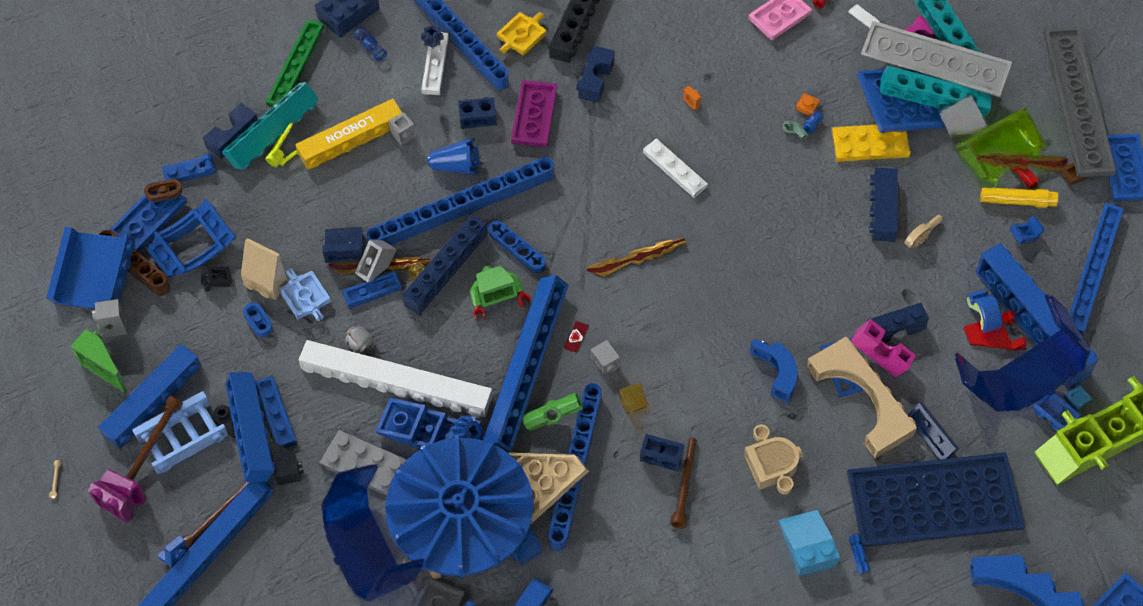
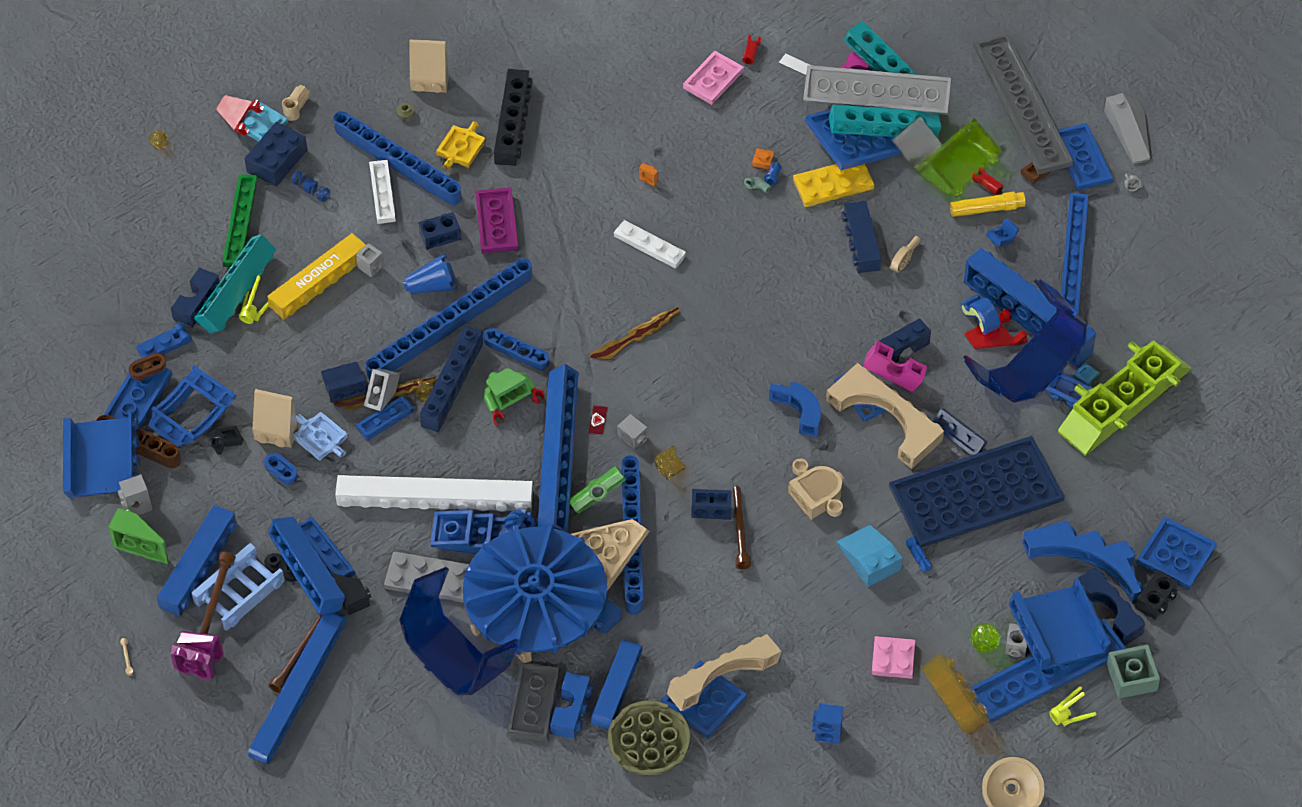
camera: 15 degrees left, 5 degrees down
(173, 551) = (268, 693): blue bracket -> none
(359, 340) = (387, 465): light grey head -> none
(432, 36) = (373, 165): dark blue gear -> none
(599, 62) = (545, 182): dark blue arch -> none
(1022, 161) = (983, 169): pearl gold sword -> none

